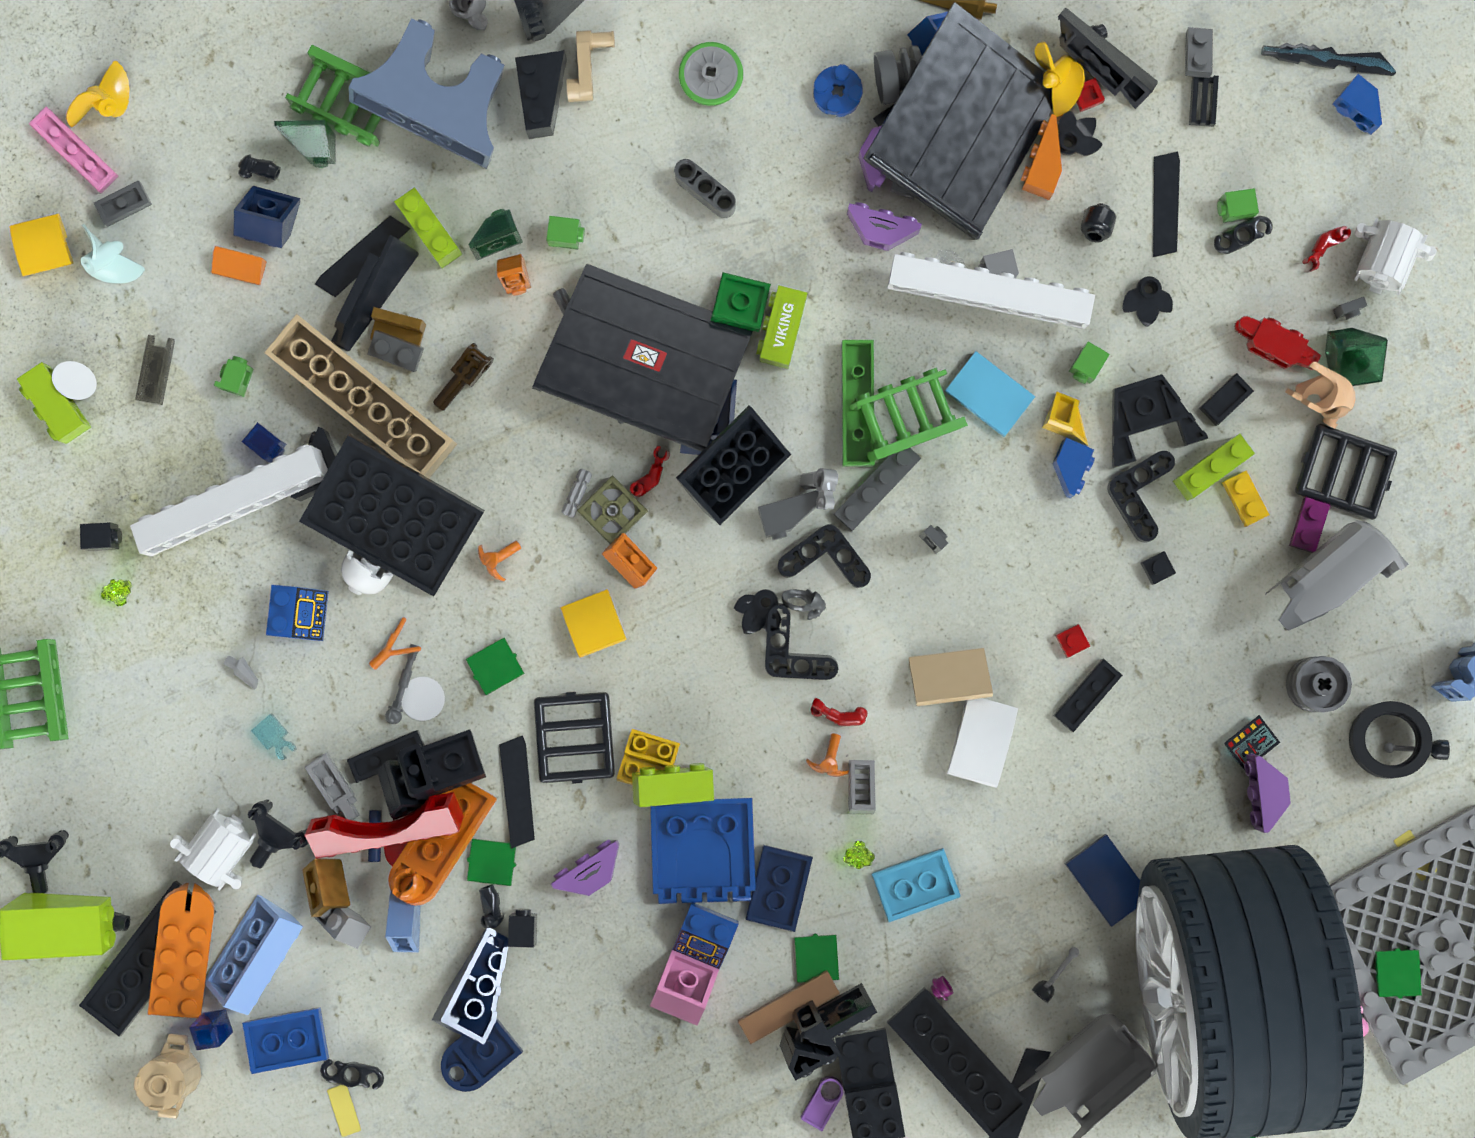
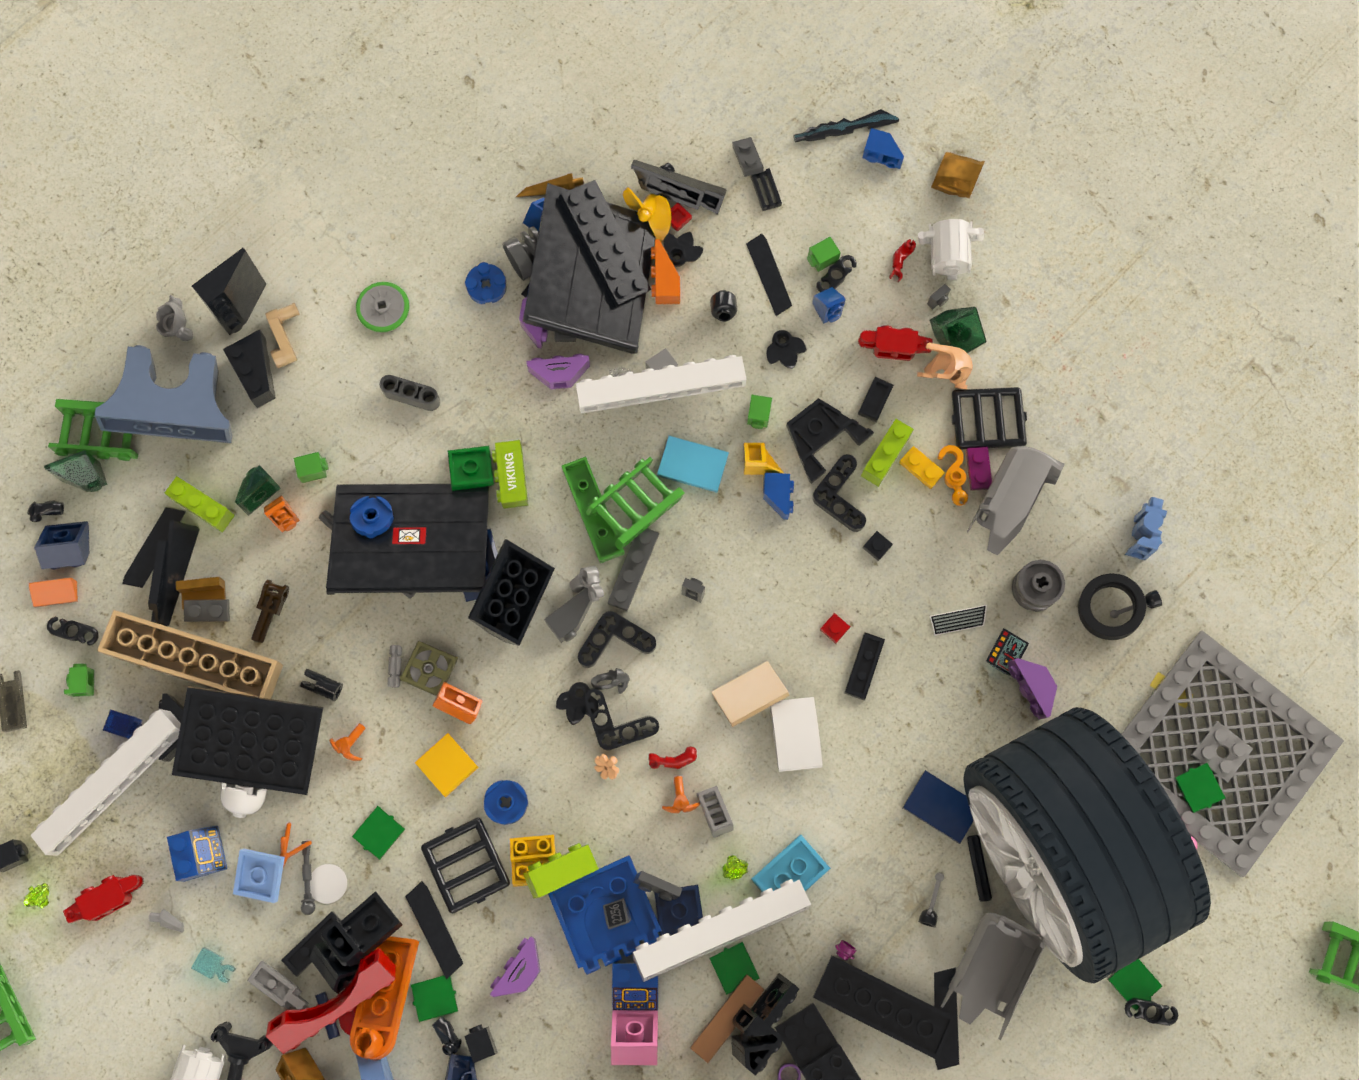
camera: 25 degrees left, 10 degrees down
(184, 623) = (104, 899): none -> red hinge
(256, 318) = (82, 630): none -> black piece
(353, 662) = (258, 875): none -> light blue plate
(493, 485) = (324, 686): none -> black hinge
(617, 305) = (375, 526): none -> blue plate
(629, 681) = (493, 801): none -> blue plate
(652, 478) = (451, 631): red arm -> none
(715, 854) = (616, 913): none -> slope
(764, 693) = (606, 766): none -> light nougat plant
(776, 851) = (651, 883): none -> dark grey plate
(819, 916) = (720, 930): none -> white brick
(992, 96) = (604, 243): none -> plate
(1120, 960) = (979, 868): none -> black axle
(1213, 685) = (958, 620): none -> sticker
(1219, 269) = (829, 305): none -> blue slope
(1278, 523) = (955, 476): none -> light orange piece
(1435, 169) = (957, 175): none -> pearl gold slope

